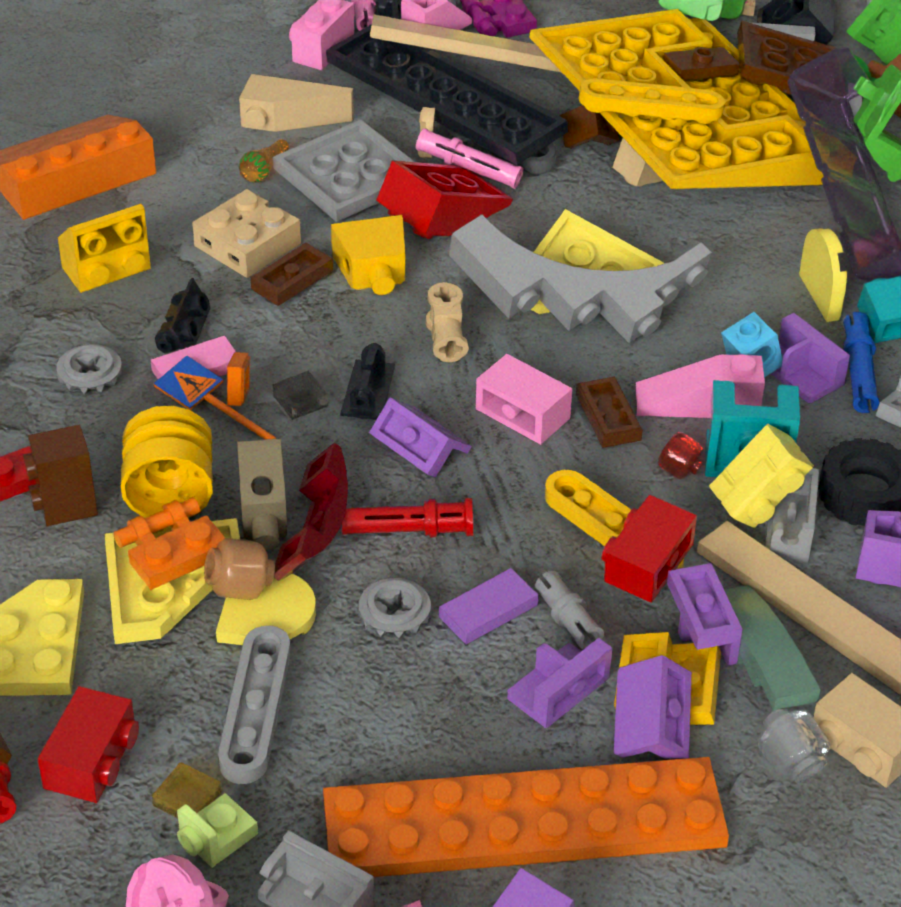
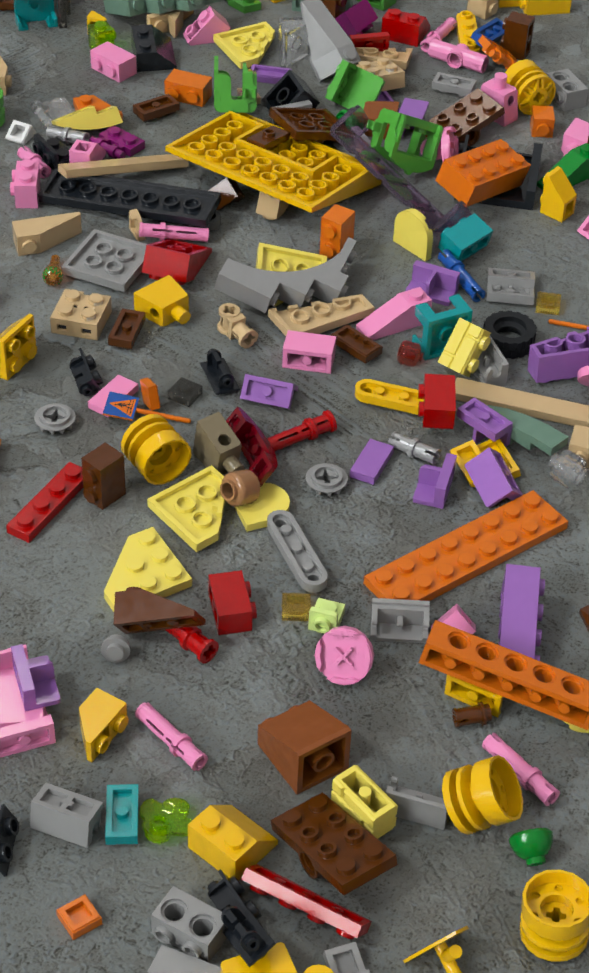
camera: 30 degrees left, 0 degrees up
(174, 552) = (196, 494): orange plate -> none
(590, 351) = (321, 315): none -> tan wing
(651, 100) = (267, 166): yellow plate -> none
(703, 218) = (336, 227): none -> orange brick
(754, 337) = (405, 280): medium azure brick -> none

